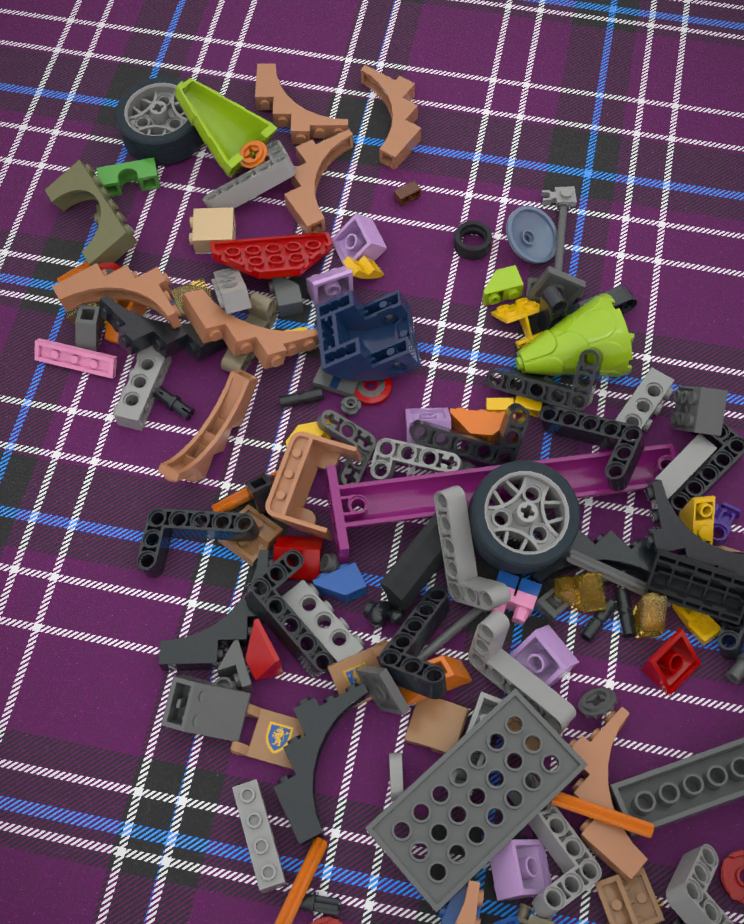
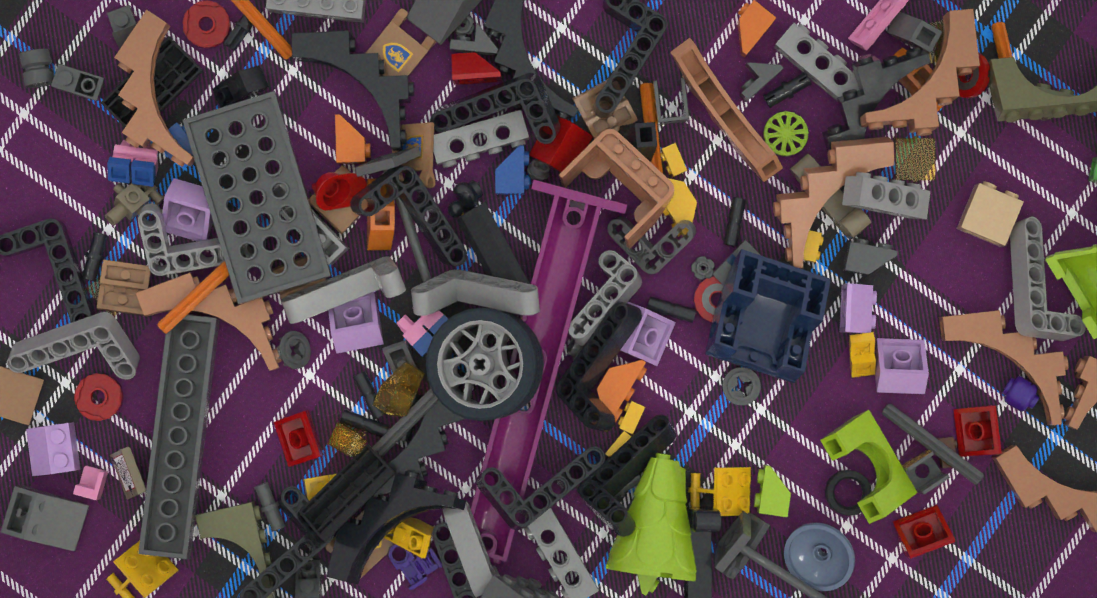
camera: 115 degrees right, 25 degrees up
(130, 448) = (752, 25): none -> orange slope
(173, 423) = (763, 73): none -> dark grey slope
(209, 391) = (786, 133): none -> lime wheel
(216, 473) = (671, 120): none -> dark grey piece
(258, 148) = (1072, 288): orange gear -> none
(270, 462) = (673, 159): none -> yellow piece
(273, 255) = (919, 263): red plate -> none
(339, 165) = (1020, 393): none -> dark purple head
(375, 875) = (240, 86): none -> black slope
(379, 177) = (977, 430): none -> red slope
(381, 739) = (350, 144): none -> orange slope
(396, 775) = (312, 142): light grey beam -> none
(397, 418) = (674, 310): none -> black piece
(406, 199) = (933, 444): none -> dark grey axle
(430, 333) = (752, 390): none -> dark grey gear
(431, 241) = (892, 481): none -> lime arch
(431, 726) = (337, 190): none -> red piece
(433, 197) = (934, 477): none -> dark grey piece
(475, 182) = (923, 532): none -> red slope

